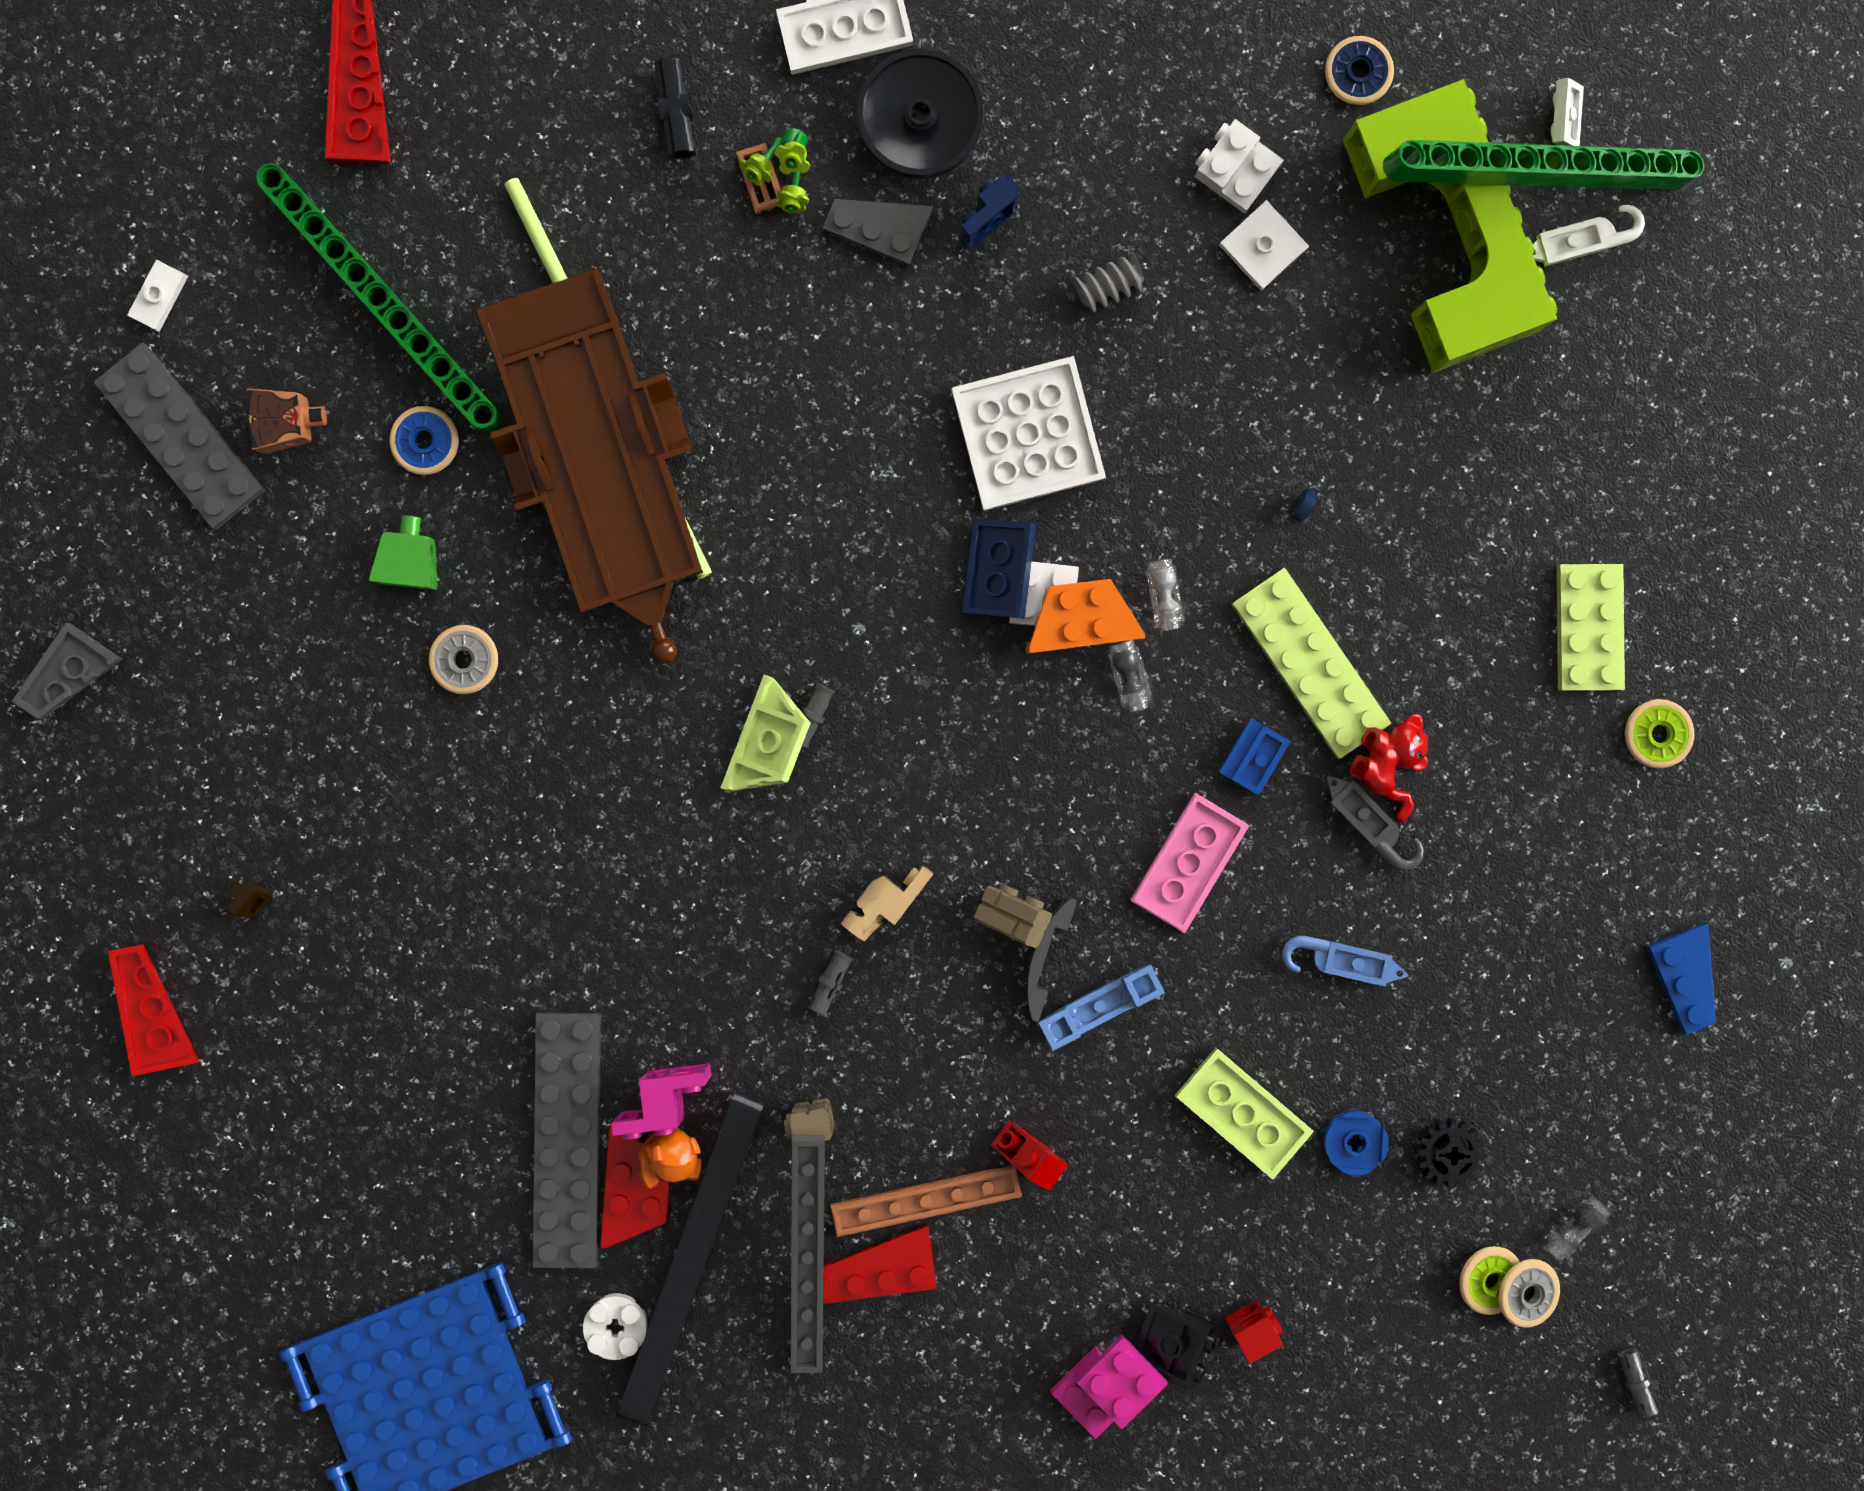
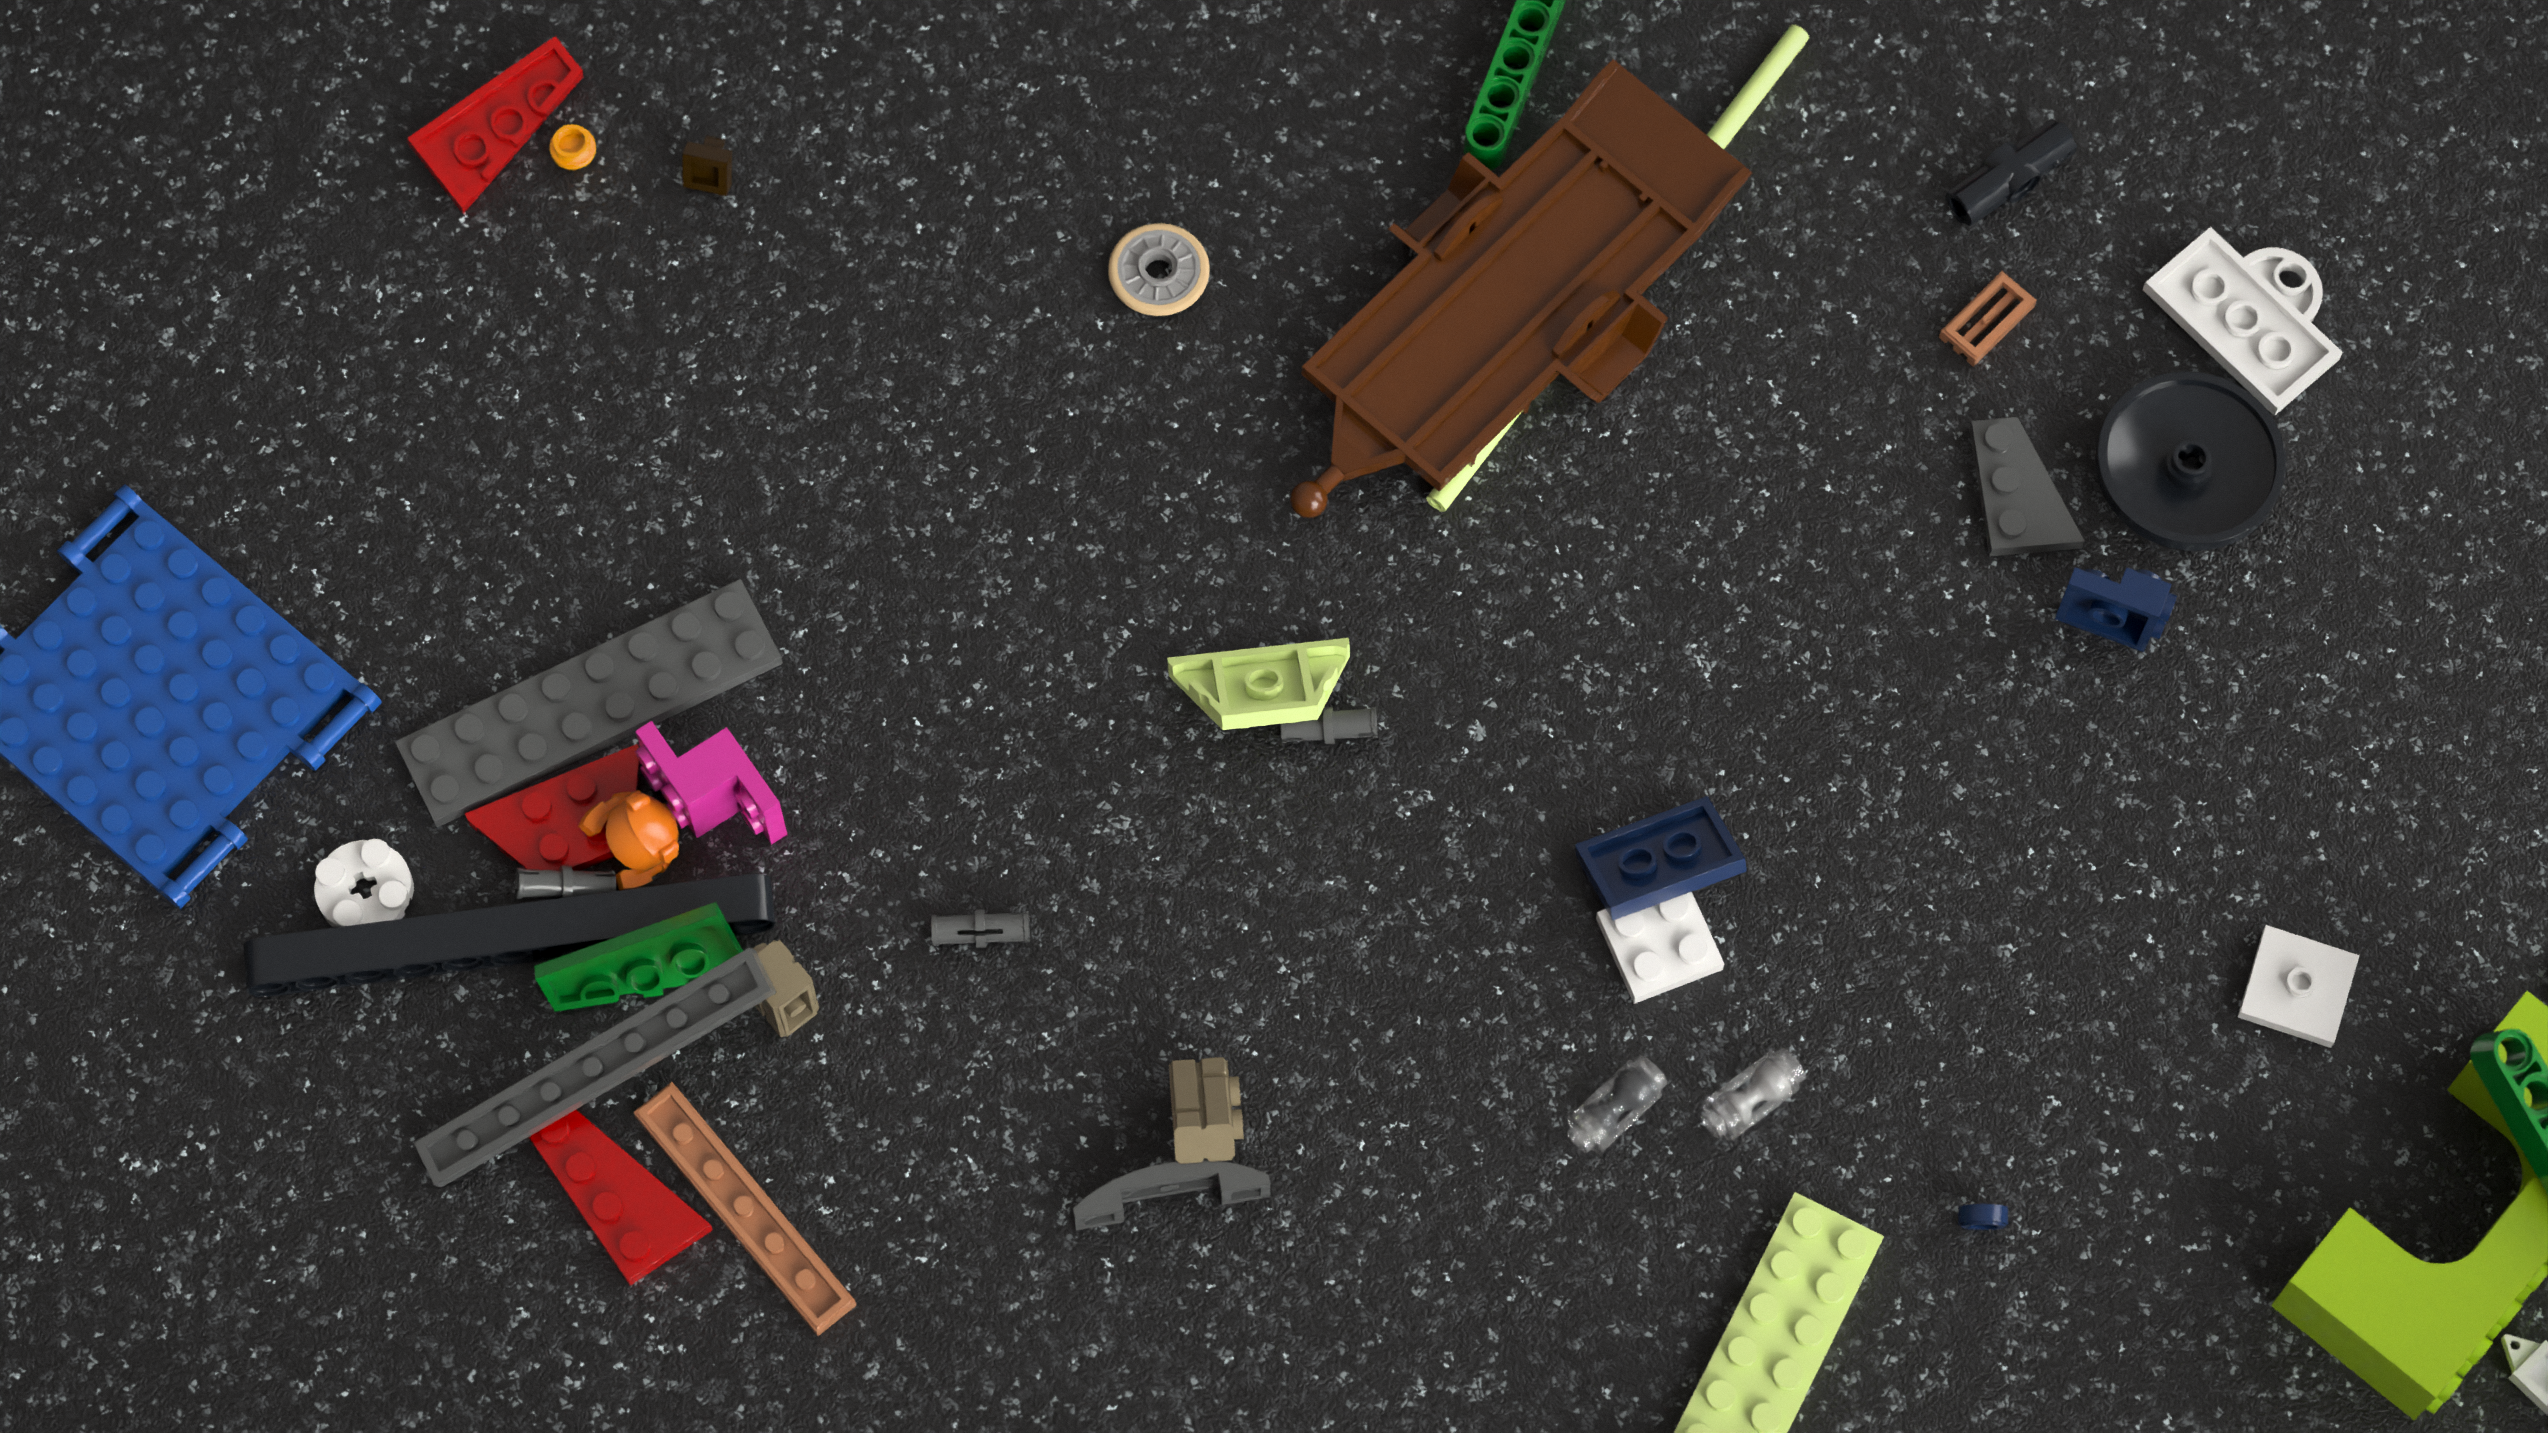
camera: 60 degrees right, 20 degrees down
(190, 974) = (572, 147): none -> light orange plate
(406, 558) = (1250, 138): bright green torso -> none
(444, 440) = (1406, 114): blue wheel -> none
(677, 1212) = (562, 883): none -> dark grey pin
(751, 1189) = (640, 961): none -> green wing
(792, 158) = (2035, 328): lime plant -> none
(885, 900) = (1132, 944): tan plate -> none
(1028, 433) = (1862, 809): white plate -> none
(1029, 1155) = (880, 1310): red slope -> none
(1082, 617) = (1658, 998): orange wing -> none
(1100, 1006) = (1138, 1300): medium blue slope -> none
(1110, 283) = (2122, 809): light grey piece -> none
(1189, 862) = (1405, 1323): bright pink tile -> none
(1237, 165) = (2380, 895): white plate -> none
(1254, 756) = (1601, 1330): blue plate -> none

